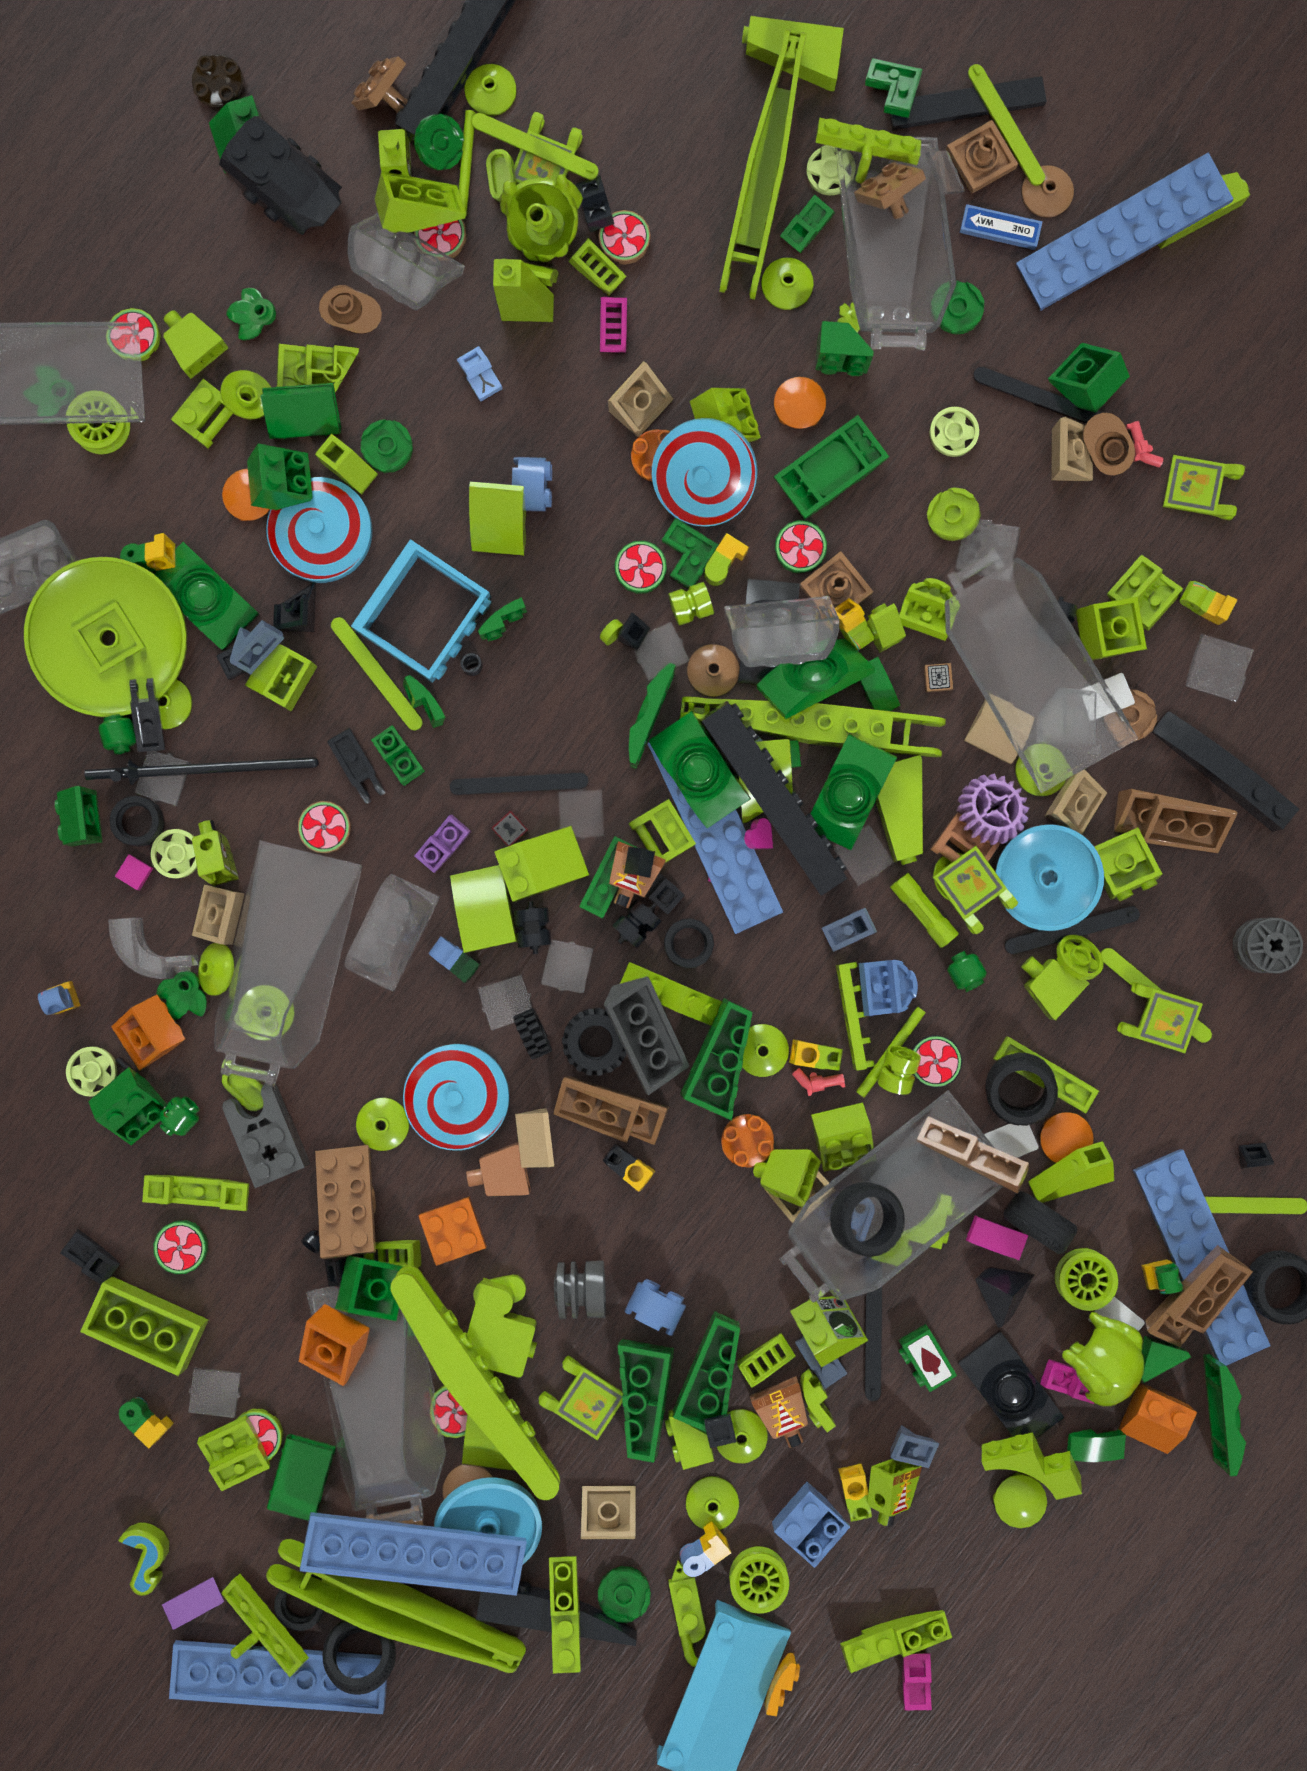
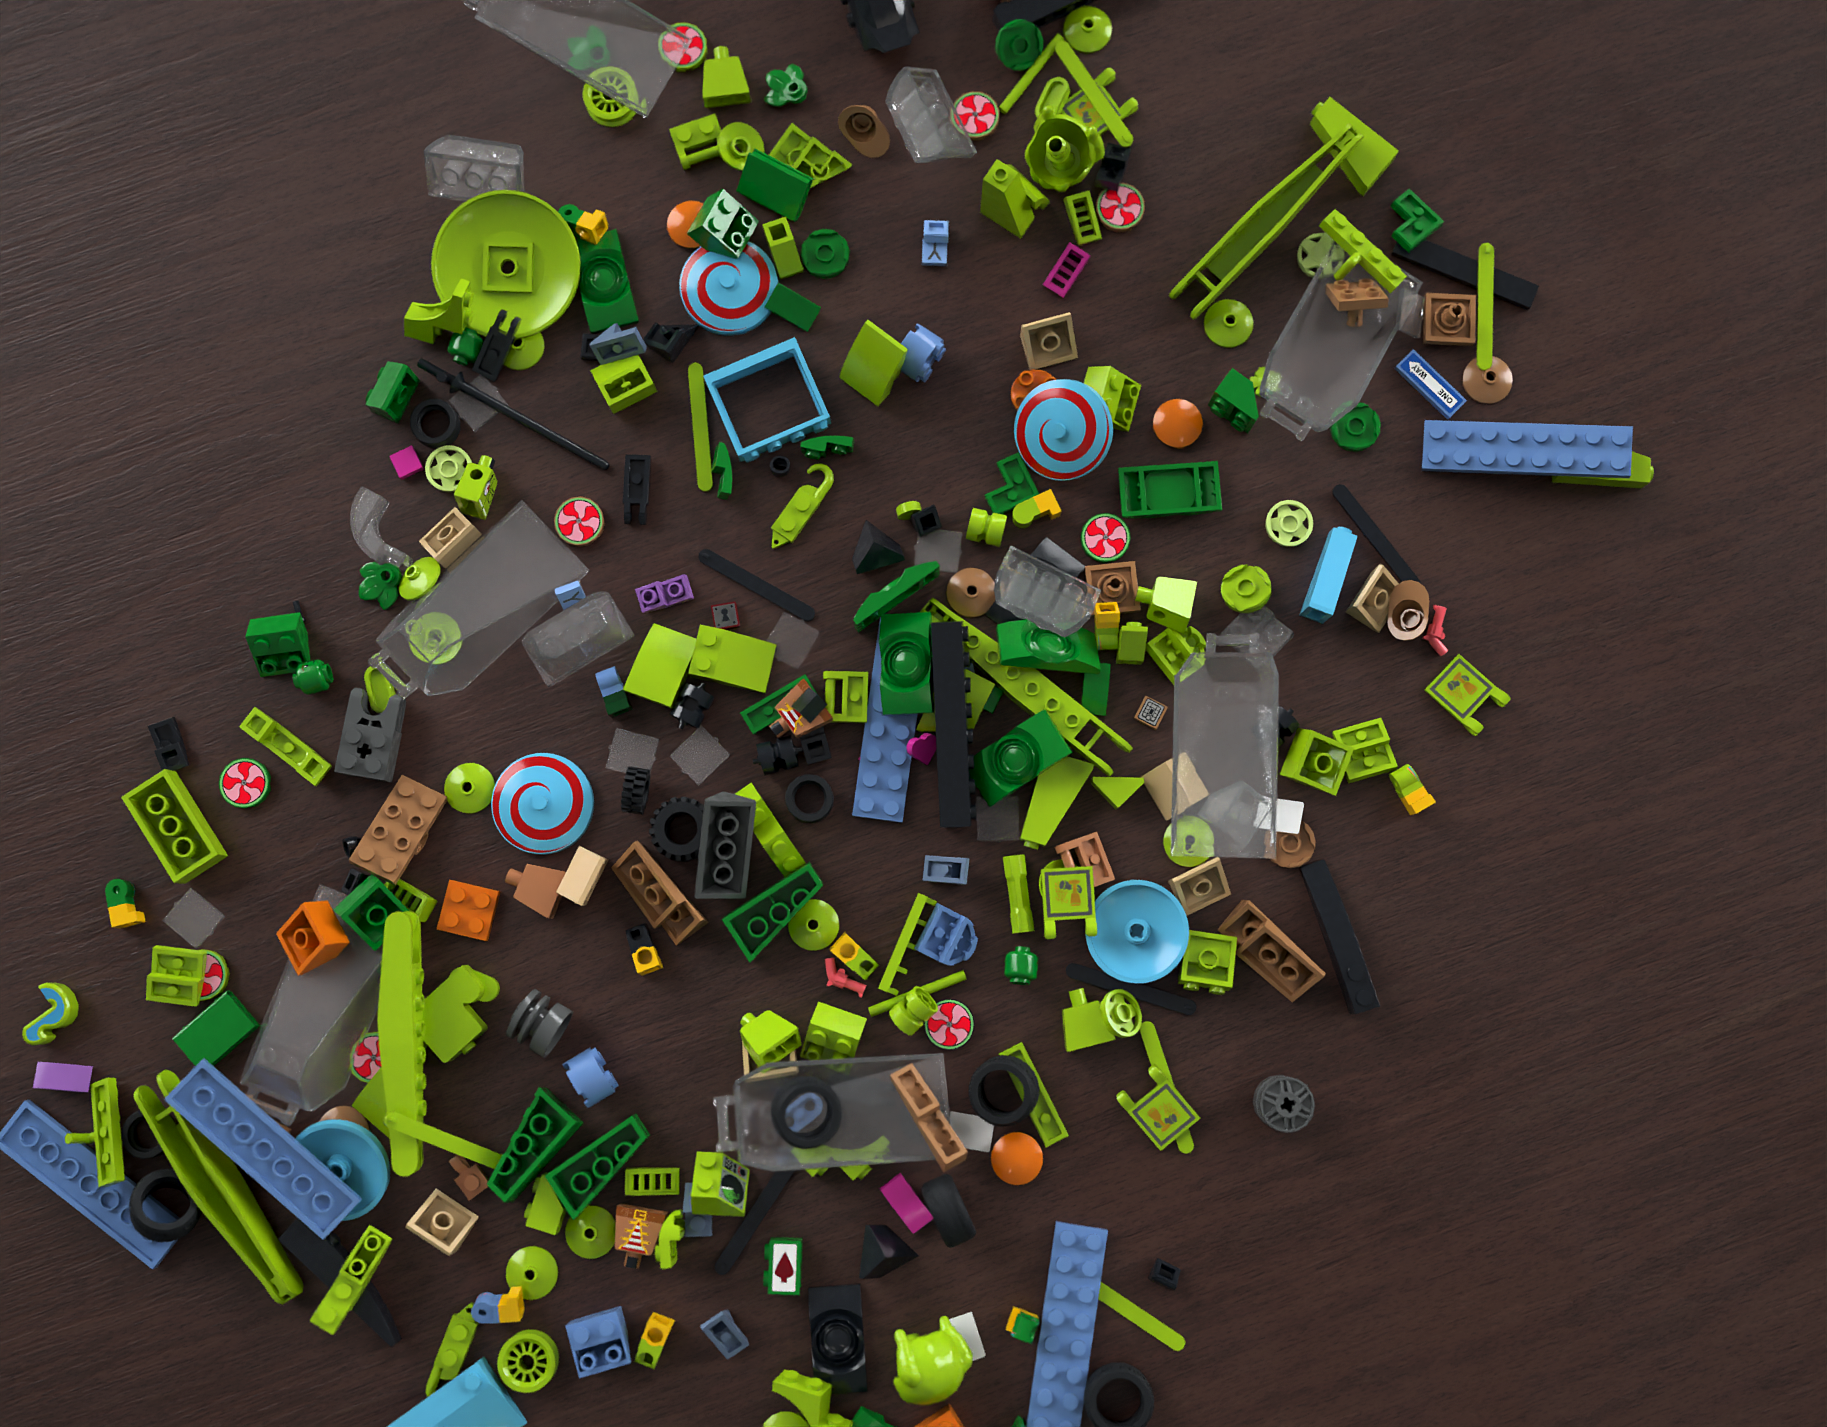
camera: 35 degrees right, 5 degrees down
(58, 999) = (281, 524): medium blue leg -> none
(89, 712) = (429, 320): none -> lime arch
(91, 1070) = (269, 597): yellowish green wheel -> none
(148, 1032) = (333, 594): orange slope -> none
(360, 898) = (570, 594): none -> light blue tile
(389, 513) = (792, 307): none -> green slope
(395, 151) = (978, 33): lime torso -> none
(398, 755) = (675, 501): green slope -> none
(416, 203) = (969, 80): lime slope -> none
(514, 690) = (801, 508): none -> lime plate
(564, 1444) = (441, 1139): none -> lime piece
(587, 1401) = (485, 1120): lime flag -> none
(605, 686) = (875, 550): none -> black slope
(607, 1460) = (471, 1179): none -> nougat plate
(624, 1594) = (411, 1300): green tile -> none
(640, 567) = (965, 473): tile -> none
(720, 1430) = (575, 1211): black tile -> none
(747, 1140) = (753, 990): orange dish -> none
(807, 224) = (1274, 287): green slope -> none
(892, 1488) = (685, 1354): lime torso -> none
(895, 568) = (1169, 602): none -> torso
(952, 765) = (1116, 789): none -> lime slope
(983, 791) = (1127, 827): lavender gear -> none
(1020, 456) = (1329, 575): none -> medium azure slope
(1064, 1379) = (884, 1356): dark pink slope -> none
(1074, 1173) = (1005, 1190): lime slope -> none
(1090, 376) = (1427, 547): green slope -> none
(1109, 1284) = (942, 1269): lime wheel -> none
(1160, 1357) = (977, 1391): green slope -> none
(1201, 1300) = (1041, 1362): medium nougat slope -> none
(1219, 667) = (1388, 850): clear slope -> none

